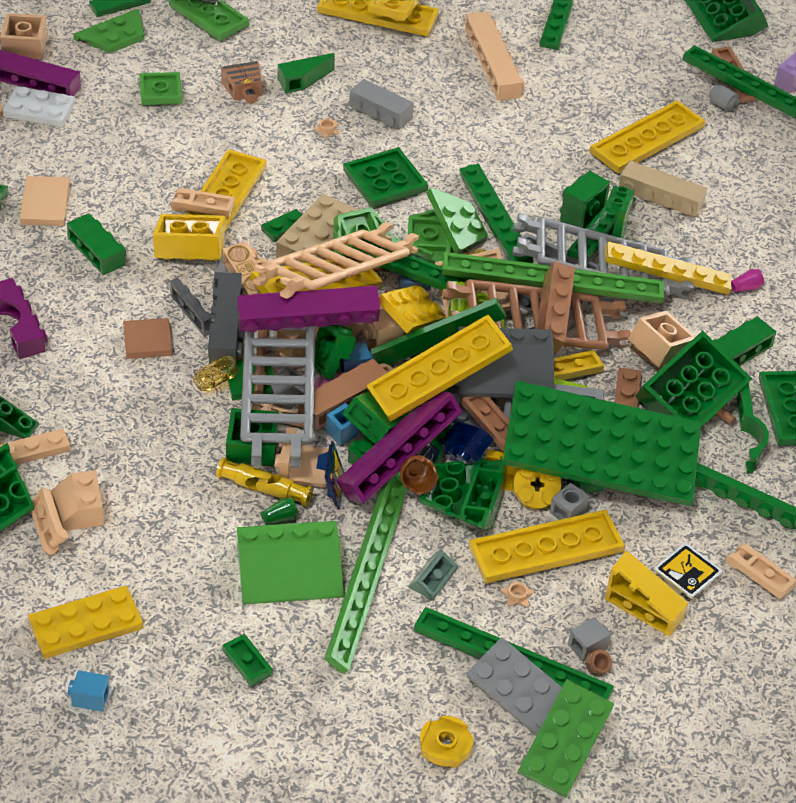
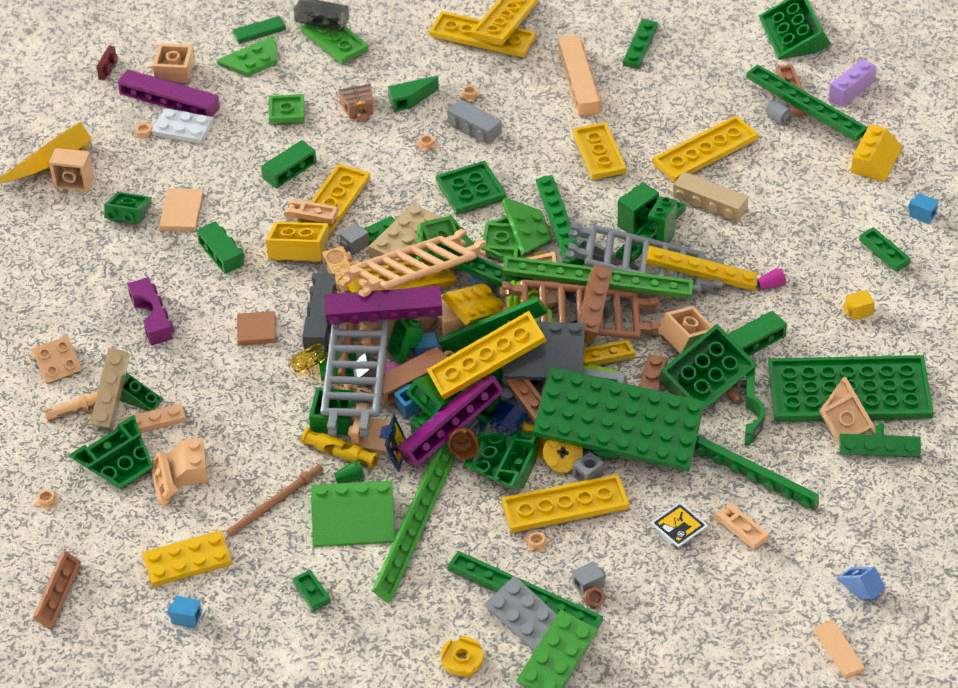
camera: 10 degrees right, 0 degrees up
(169, 149) = (288, 164): none -> green brick
(190, 306) = (294, 301): flat silver plate -> none
(223, 520) = (304, 478): none -> nougat bar
(256, 233) = (354, 239): none -> light grey brick
(371, 73) = (469, 93): none -> light nougat plate
(433, 575) = (470, 525): sand green slope -> none
(527, 138) = (599, 151): none -> yellow plate
(644, 595) = (638, 544): yellow wedge -> none

